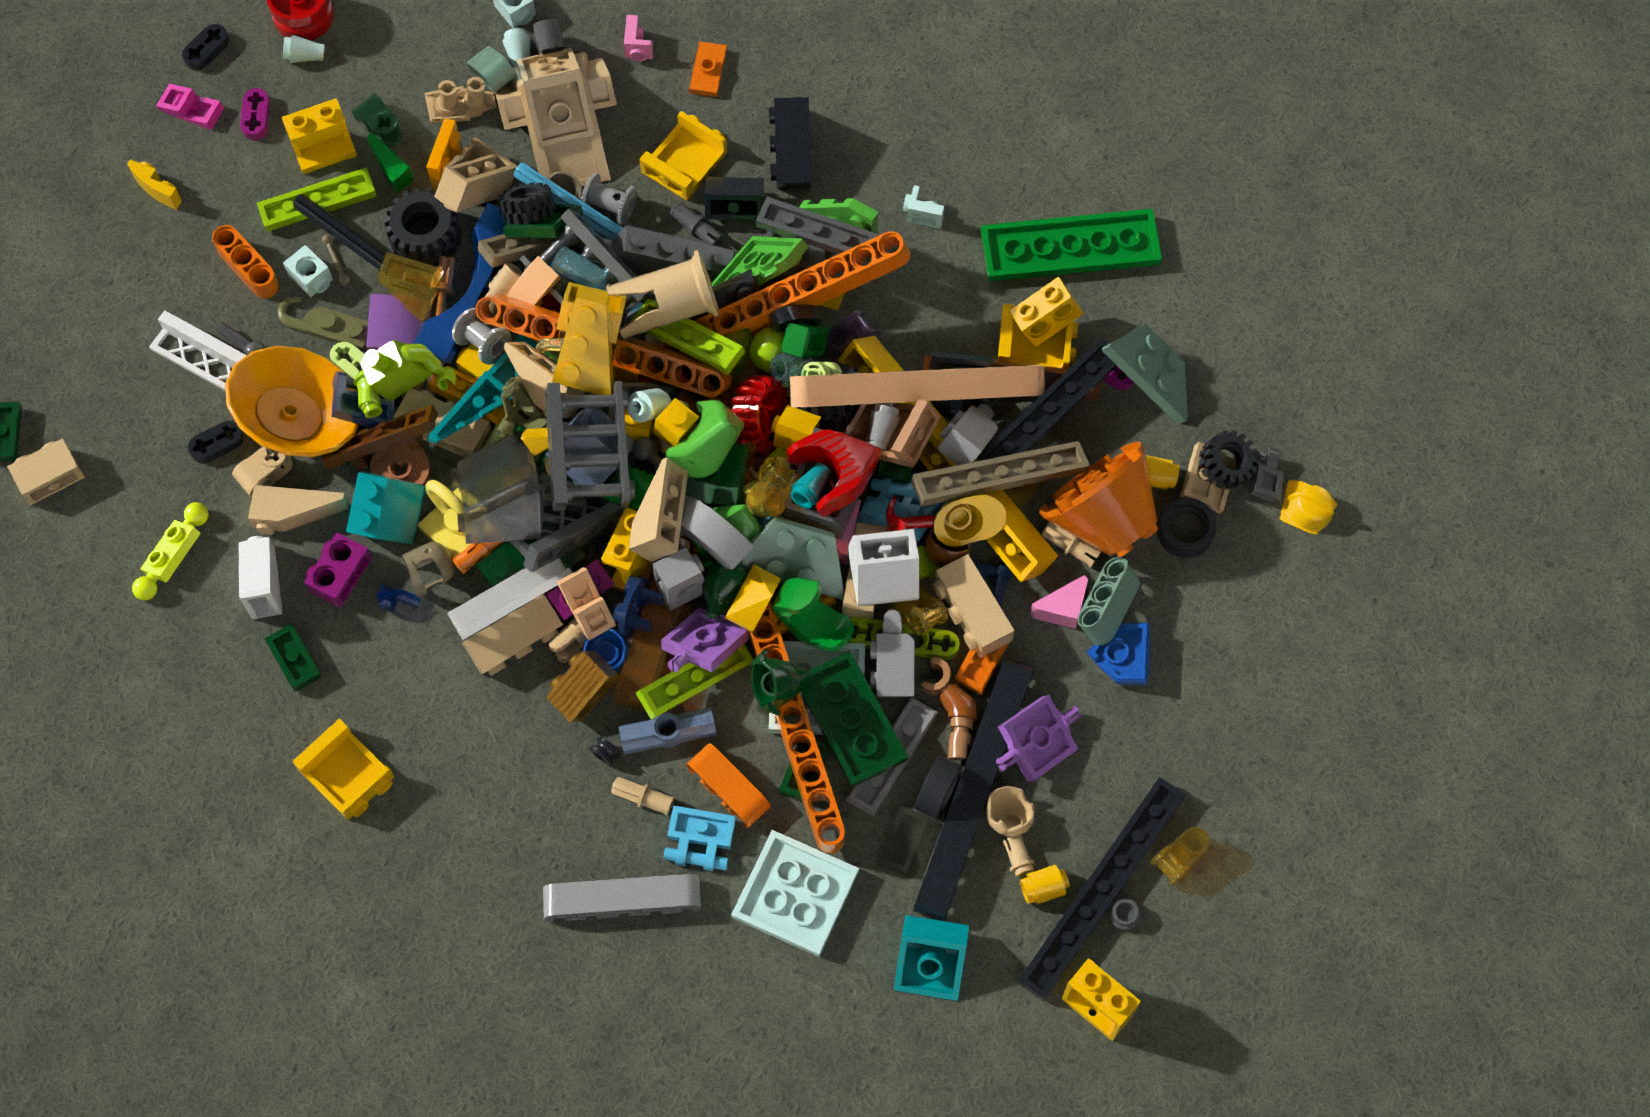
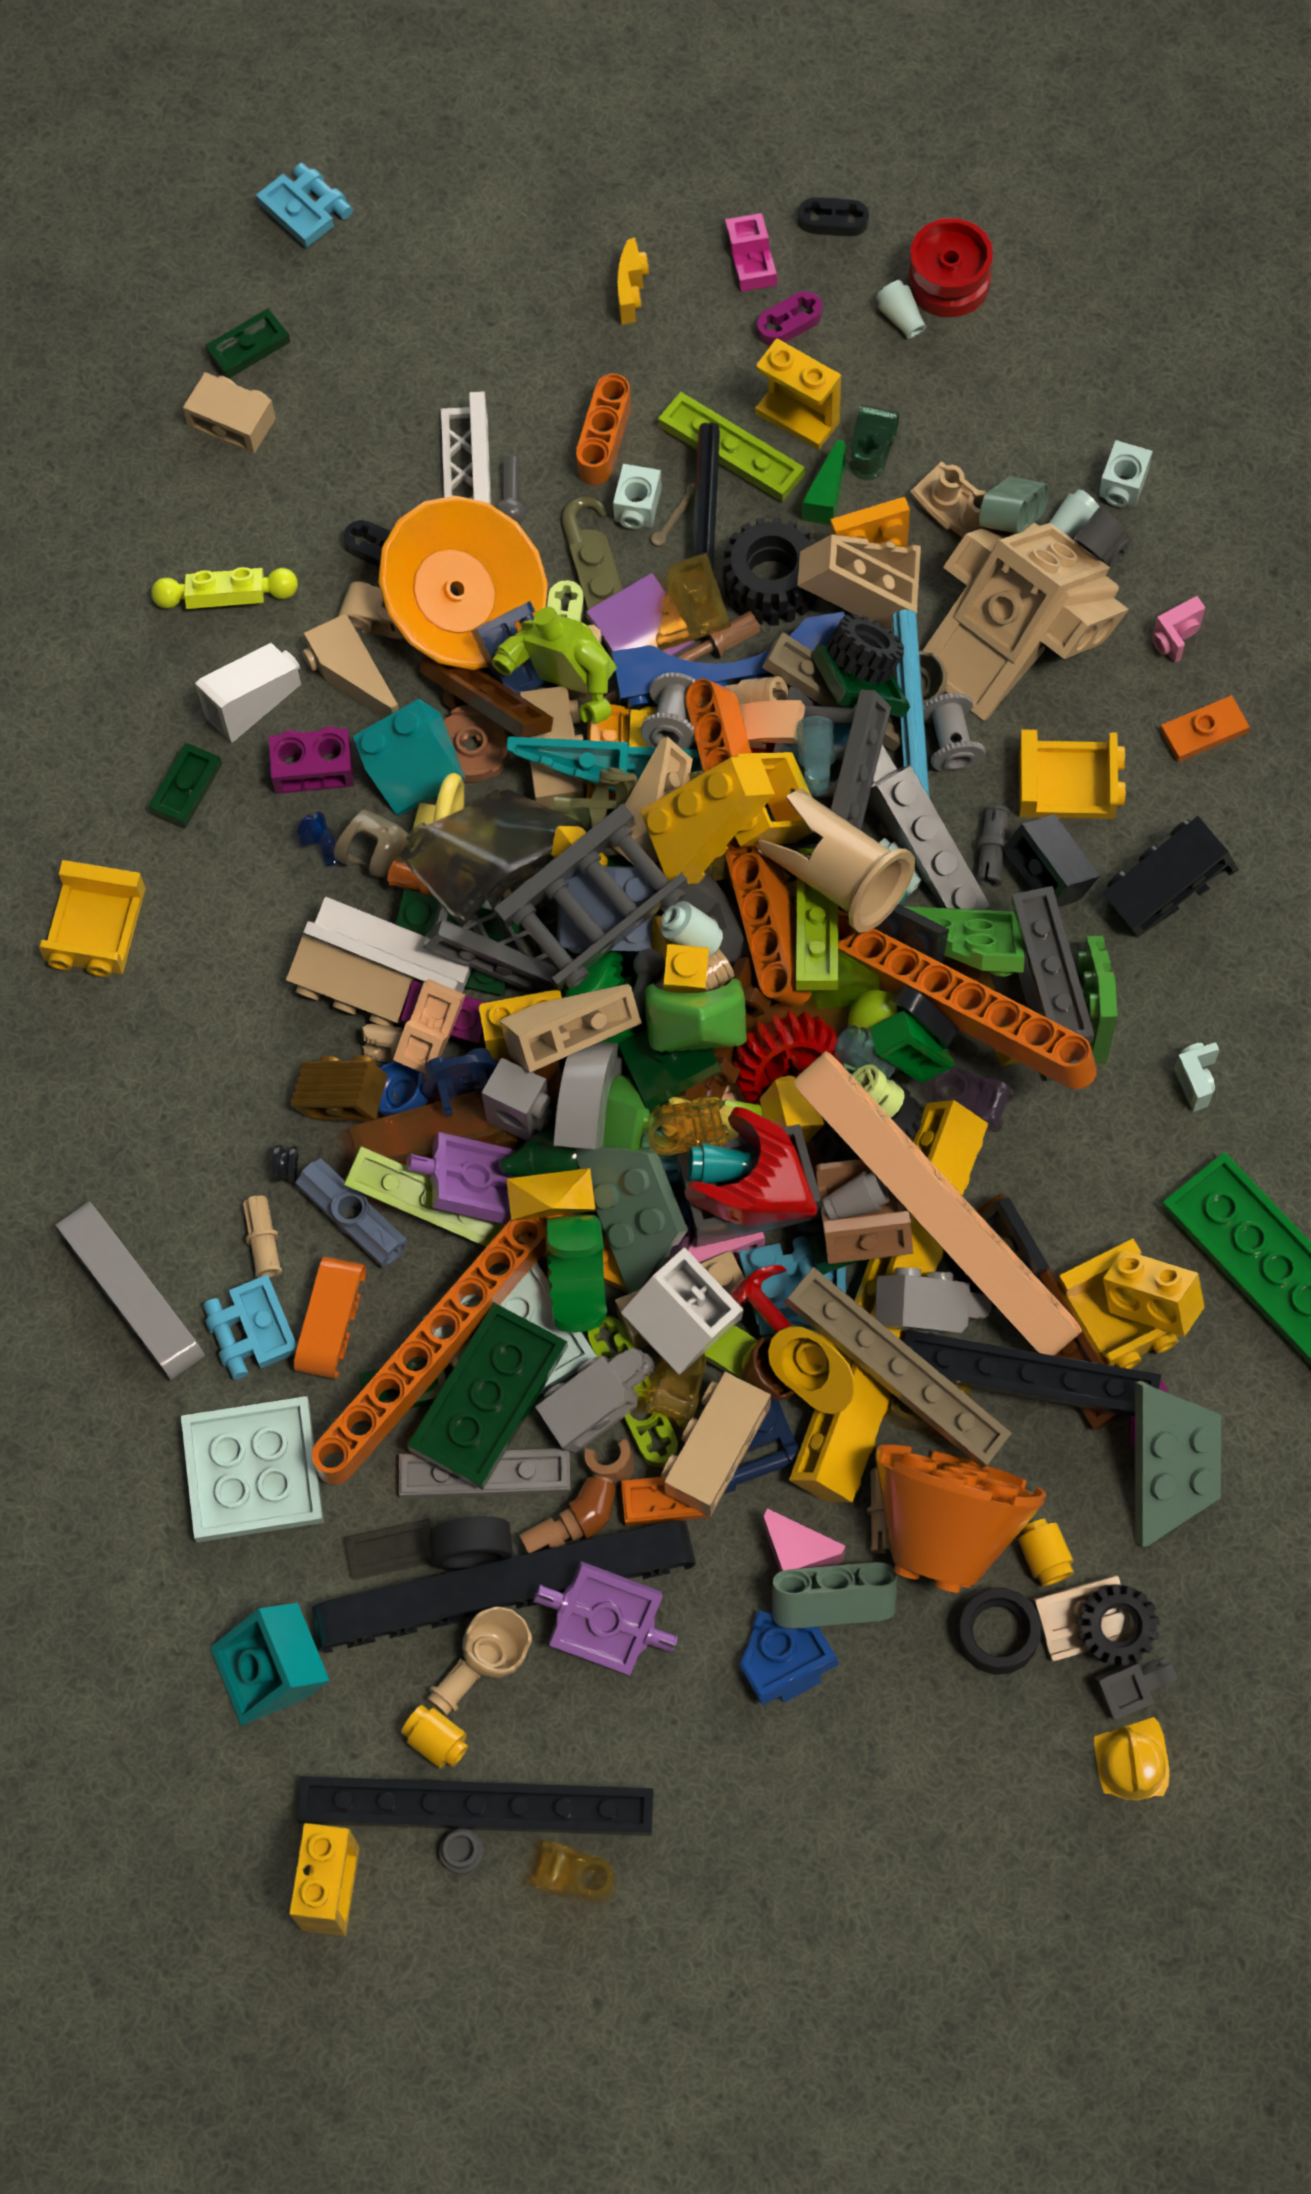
camera: 60 degrees right, 0 degrees up
(776, 682) = (463, 1284): dark green hat -> none

